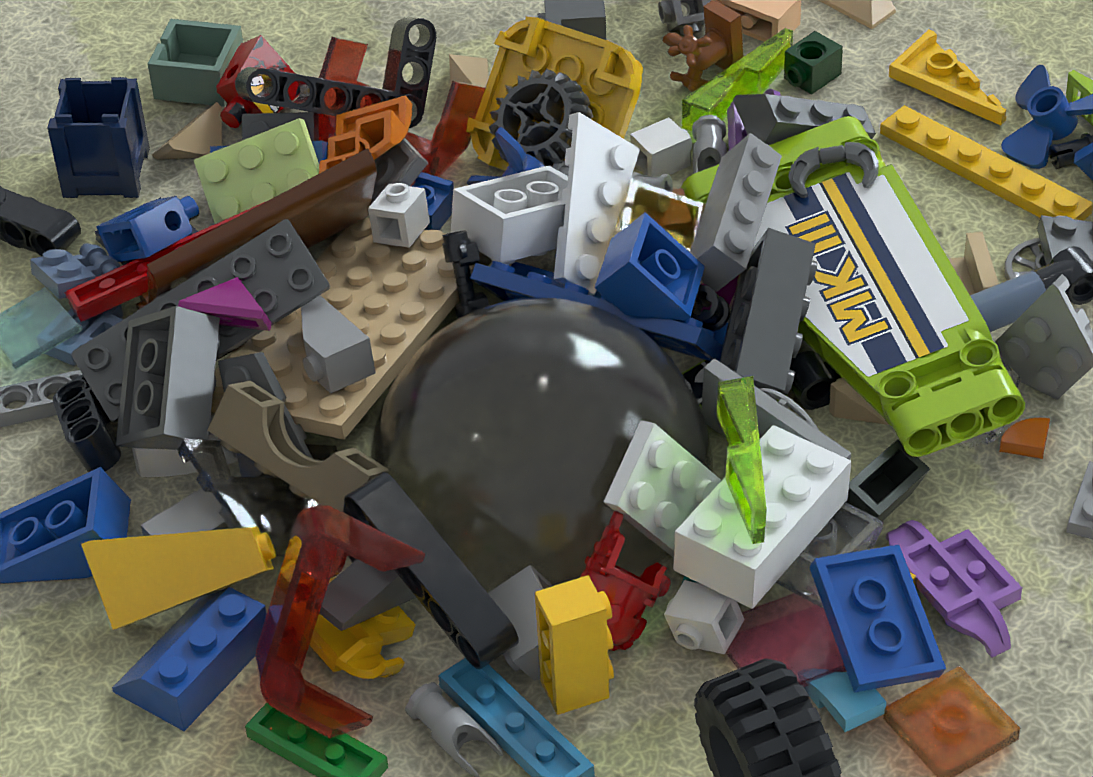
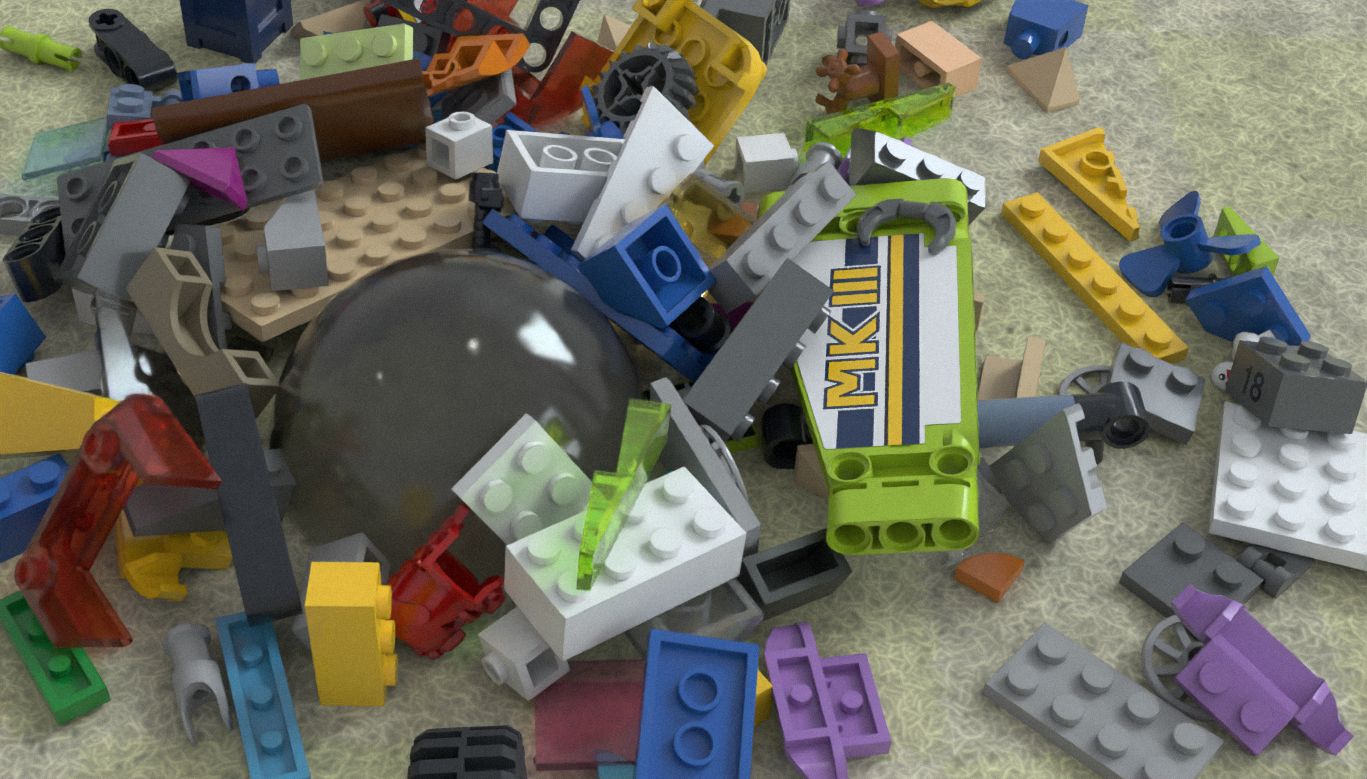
camera: 15 degrees right, 0 degrees up
(813, 62) = (964, 125): dark green brick -> none

